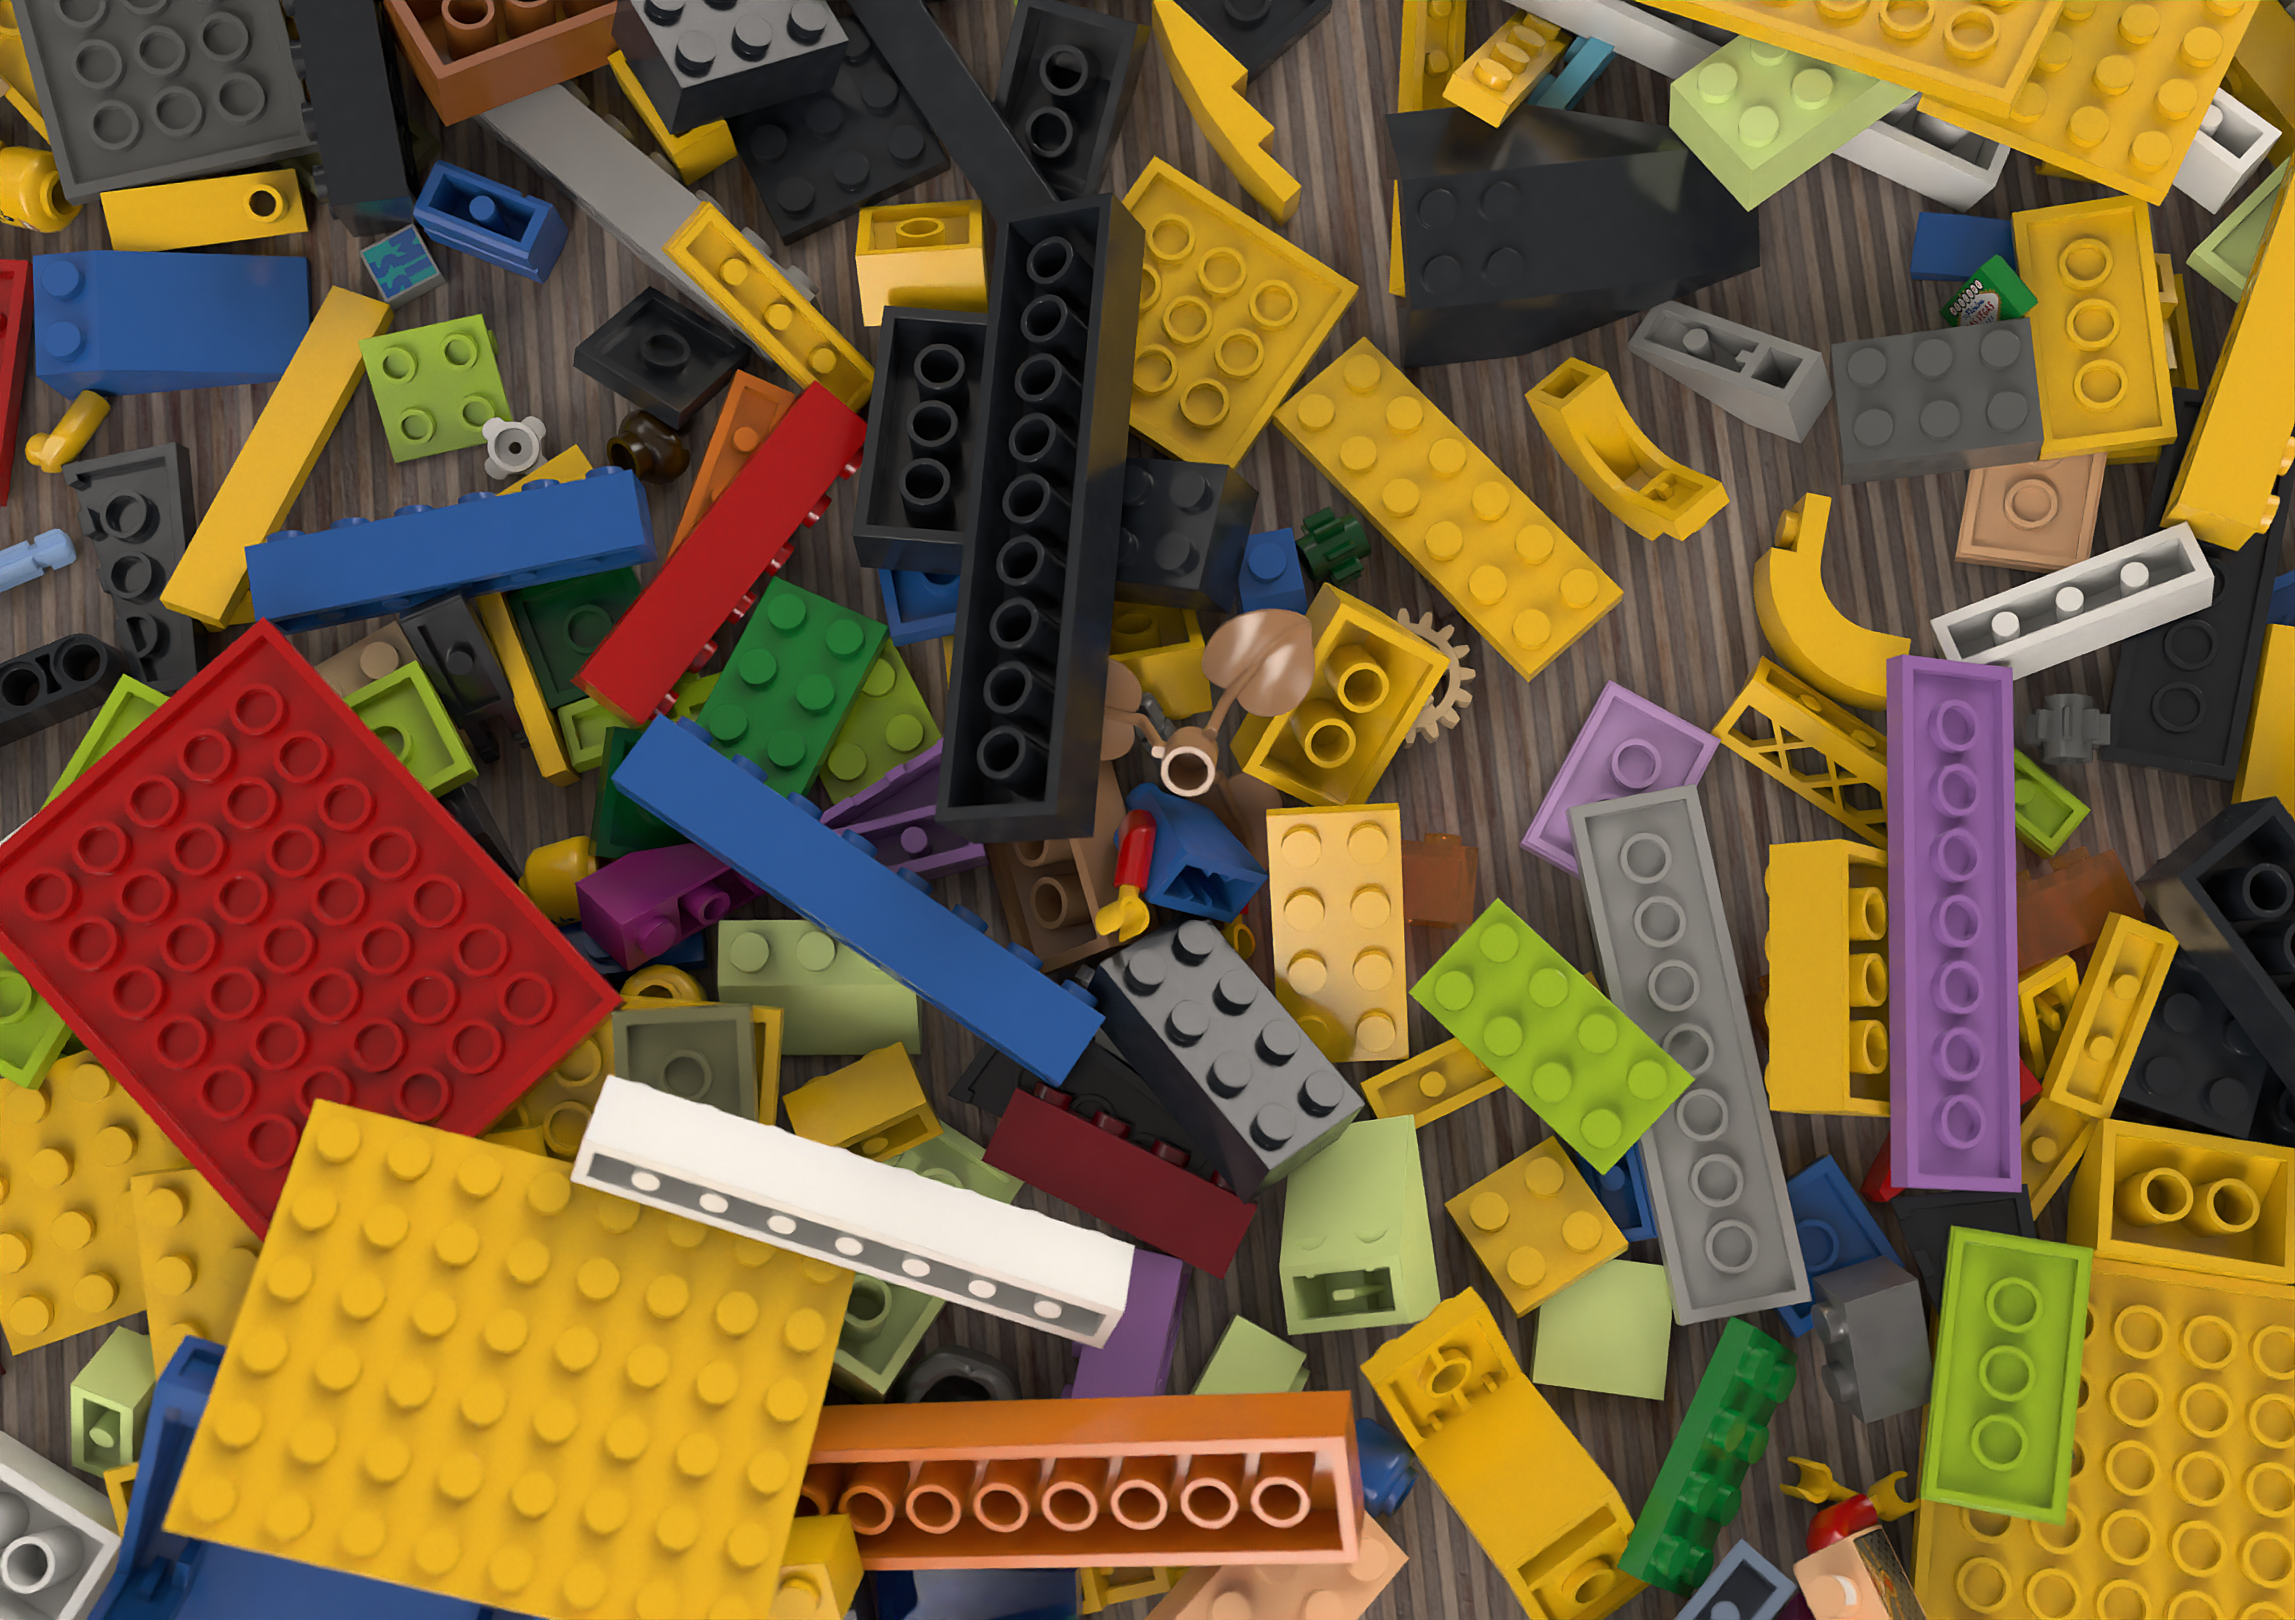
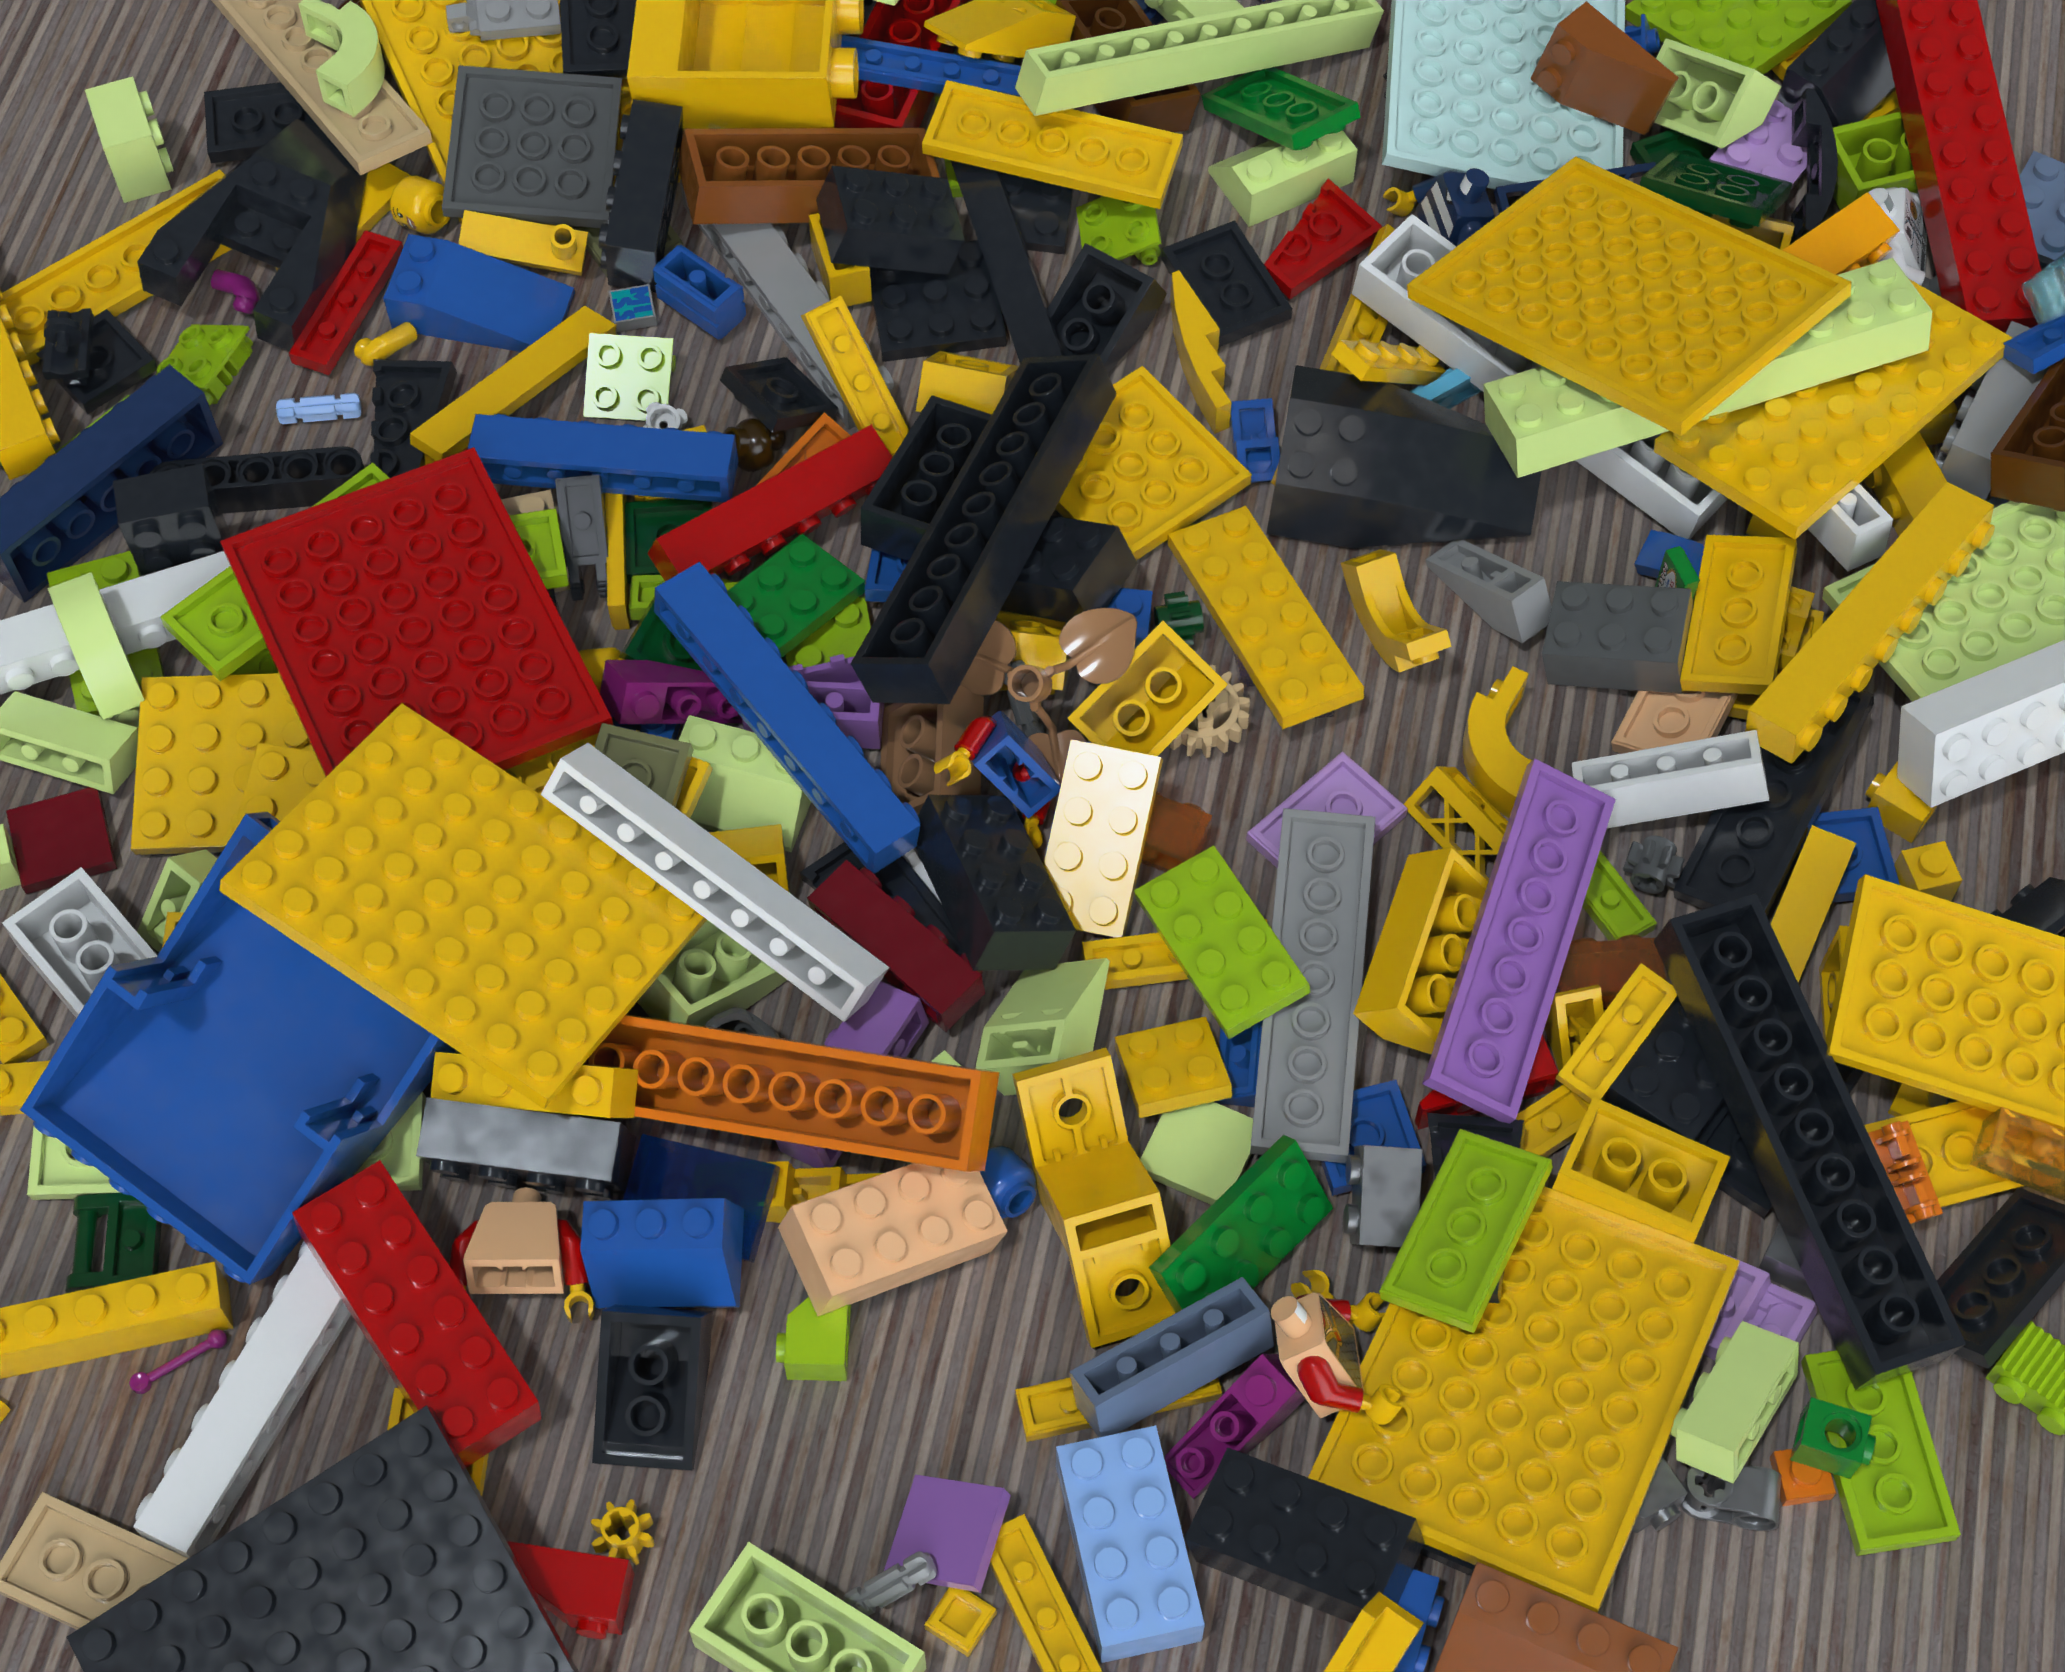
camera: 20 degrees right, 20 degrees down
(1342, 224) = (1255, 437): none -> blue slope

